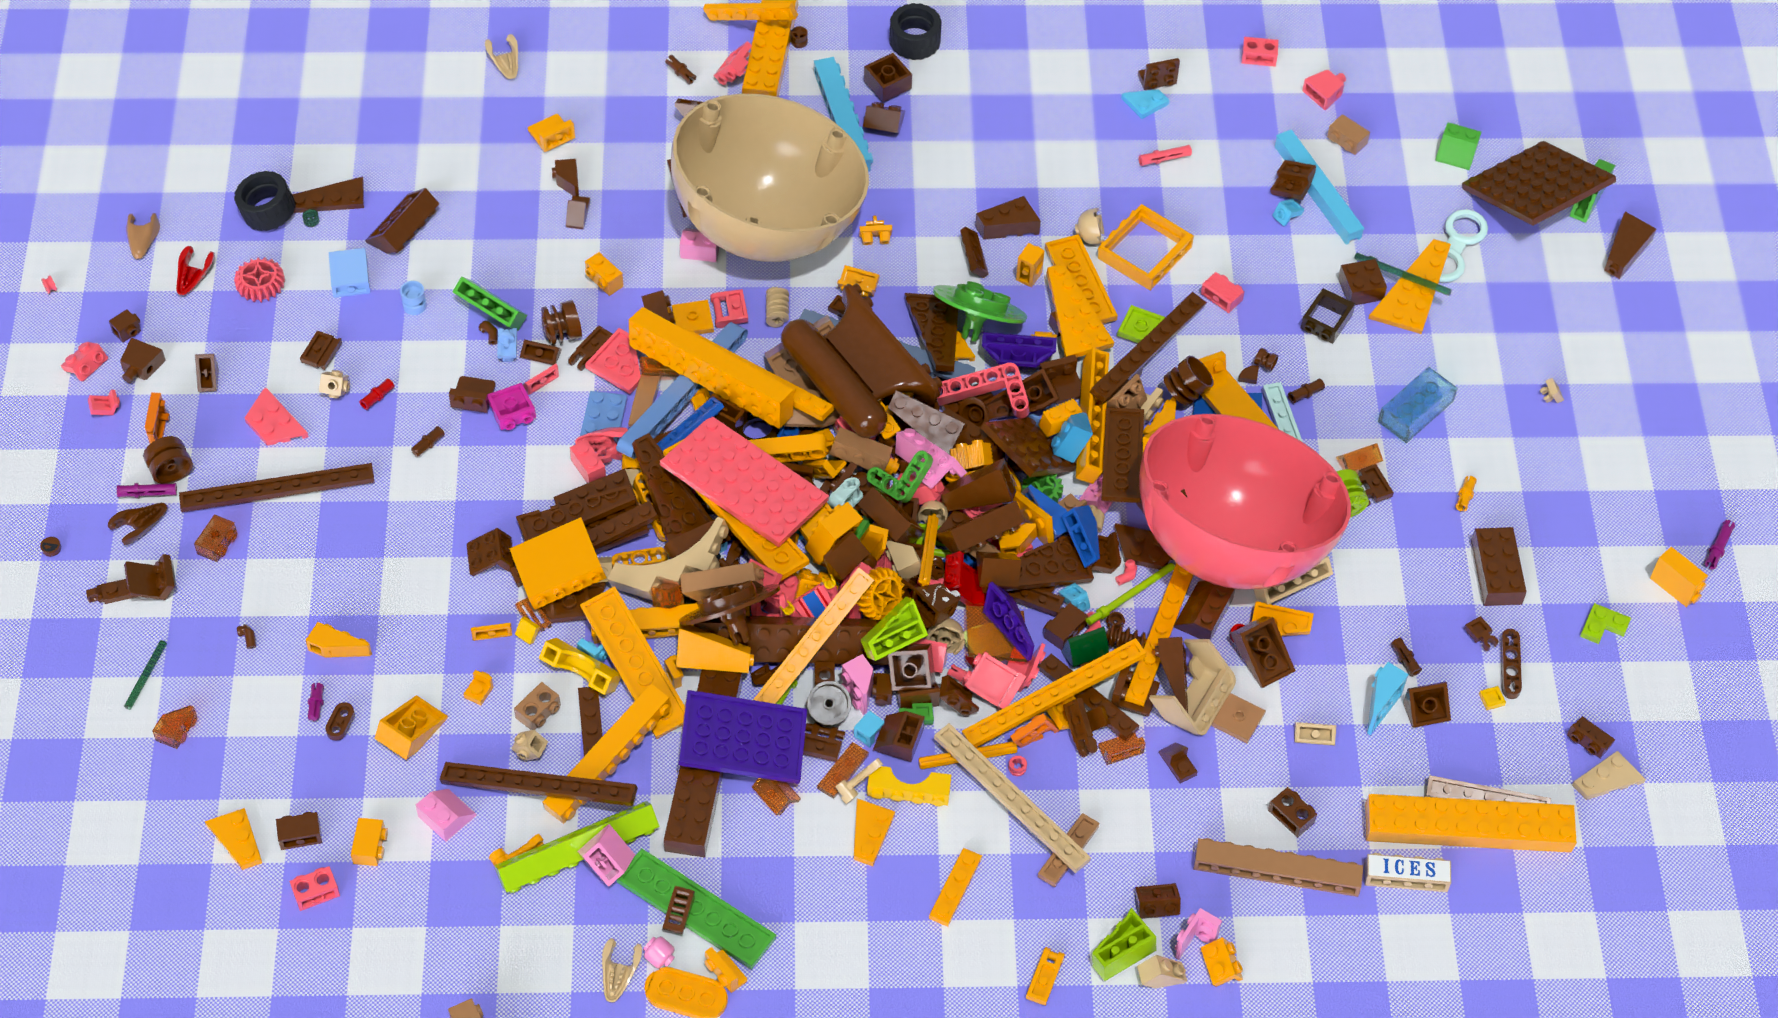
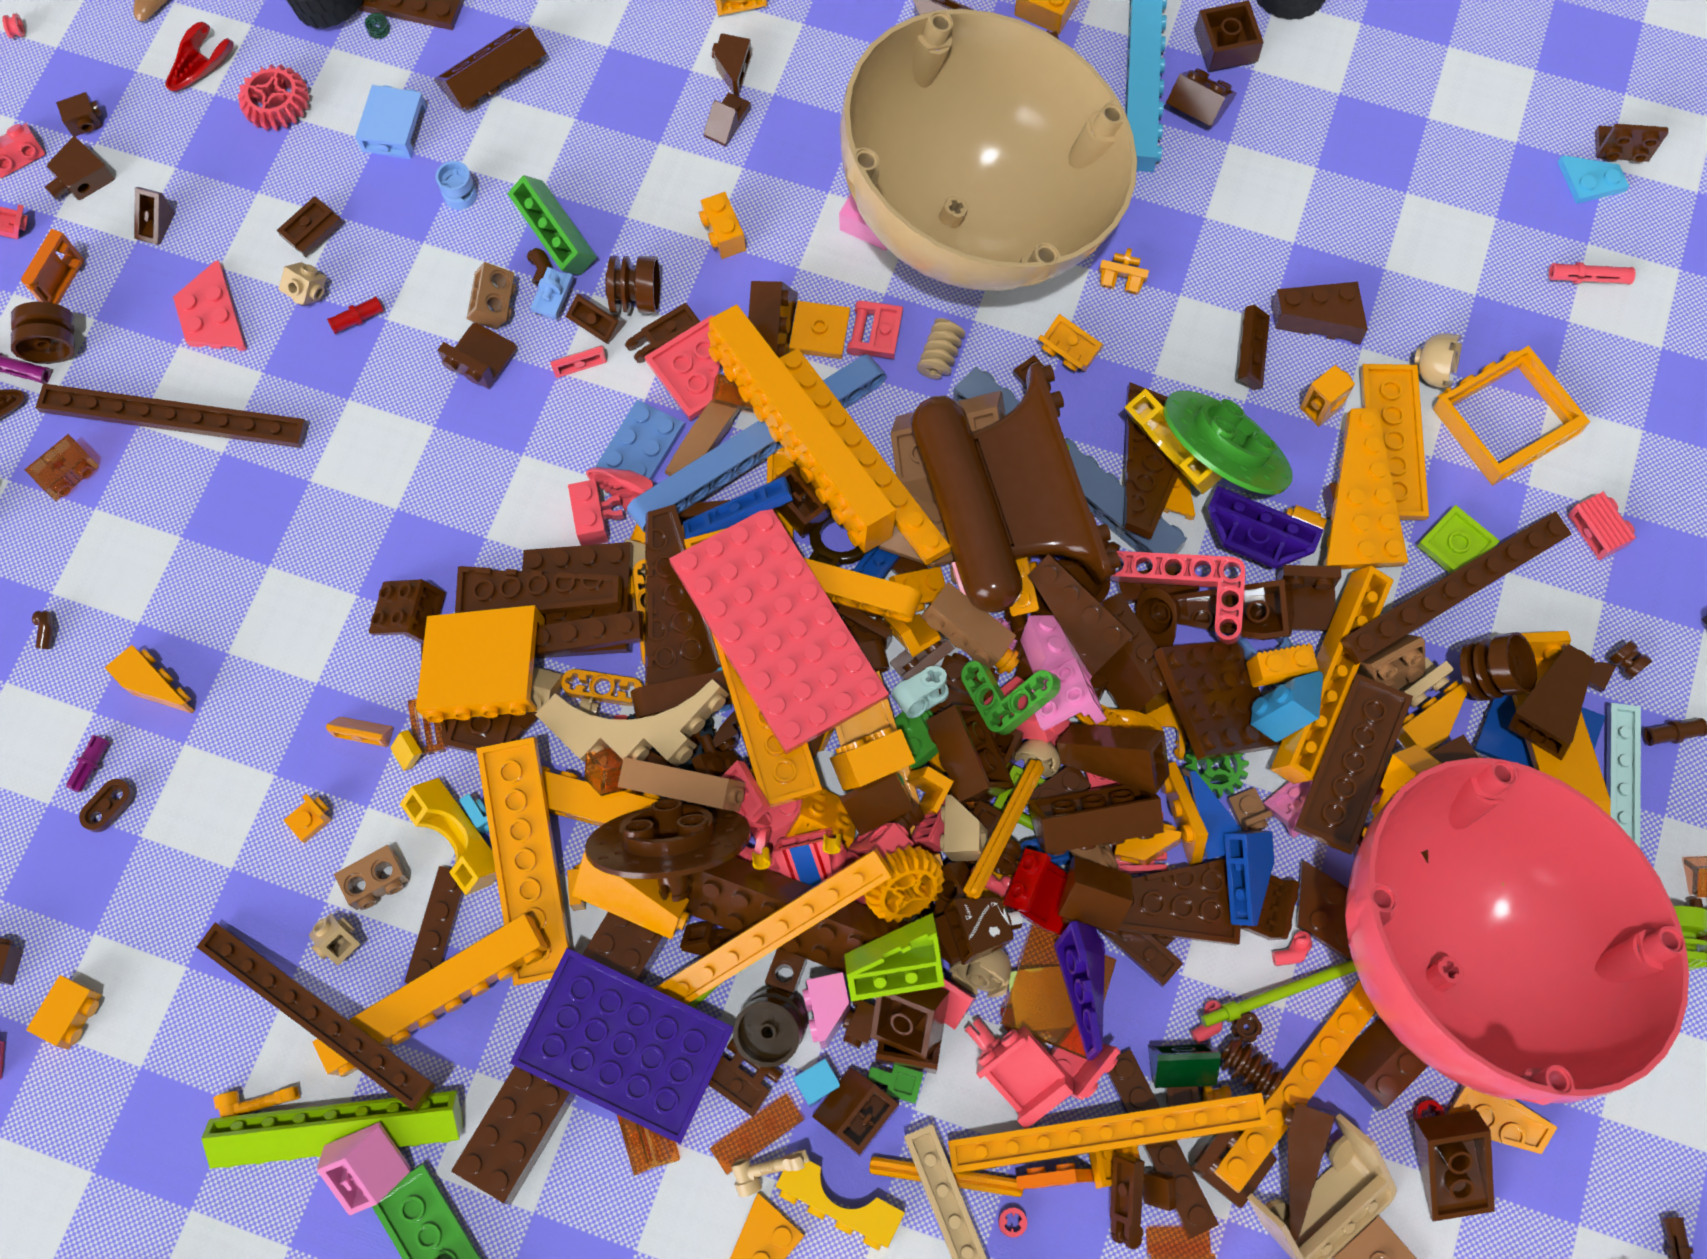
camera: 25 degrees right, 15 degrees up
(409, 727) = (192, 847): light orange slope -> none
(427, 441) = (391, 409): reddish brown axle -> none
(444, 813) = (183, 1002): bright pink slope -> none
(466, 356) = (486, 294): none -> medium nougat brick
(512, 406) = (520, 392): dark pink plate -> none
(929, 305) = (1150, 418): none -> yellow arch
(957, 696) = (959, 1080): reddish brown bracket -> none
(973, 456) = (1126, 691): light orange brick -> none
(1066, 625) = (1168, 1011): reddish brown brick -> none
(1076, 595) = (1199, 968): medium azure bracket -> none
(1099, 516) = (1281, 838): tan arm -> none
(1227, 391) = (1555, 703): none -> reddish brown slope

